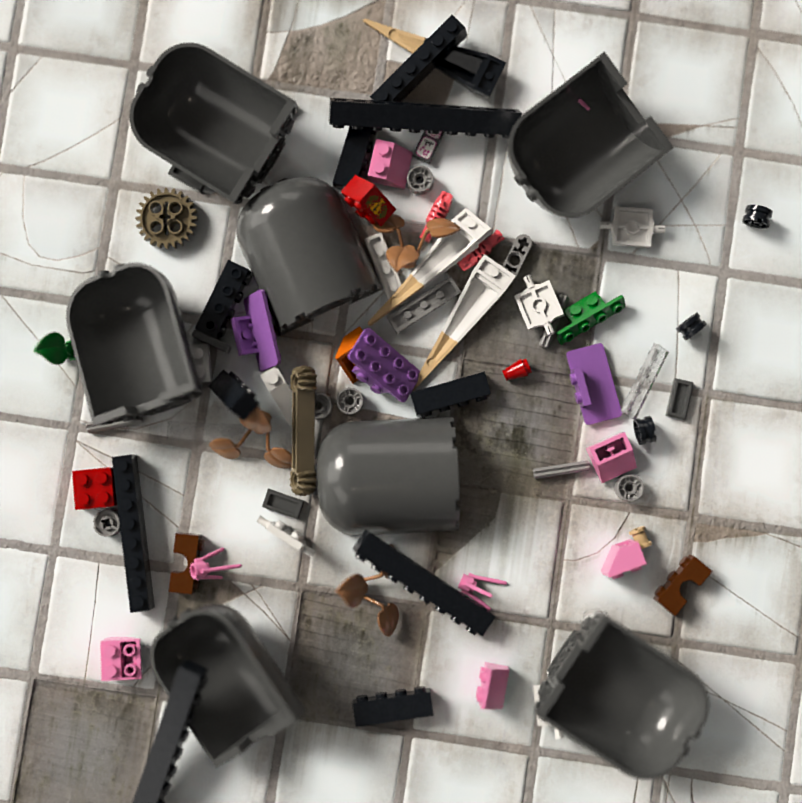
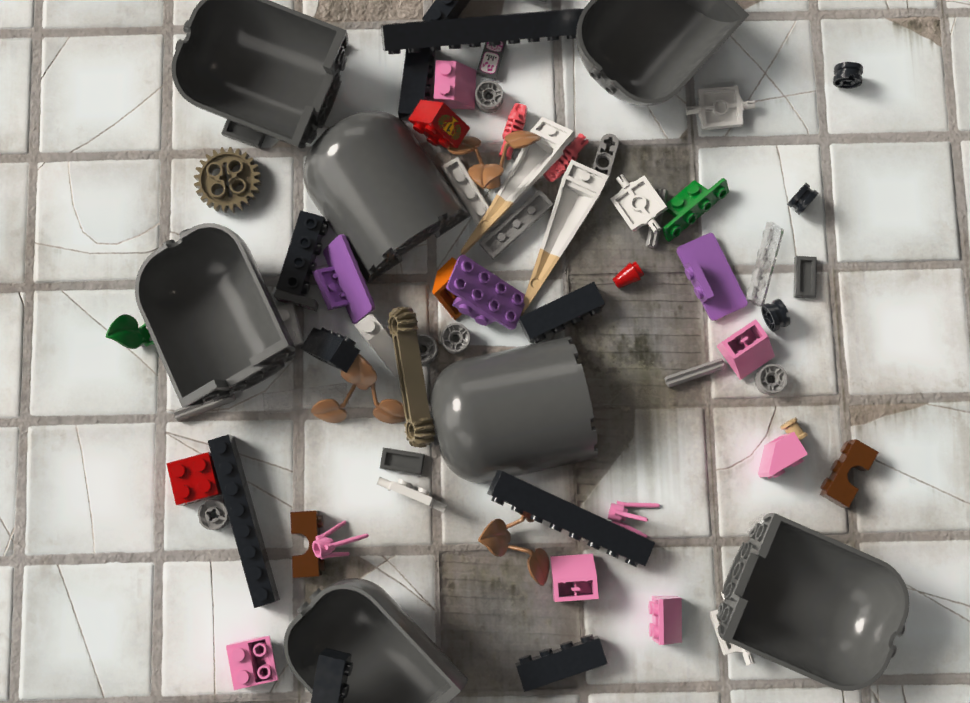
camera: 10 degrees left, 5 degrees down
(417, 634) = (574, 577): none -> bright pink slope

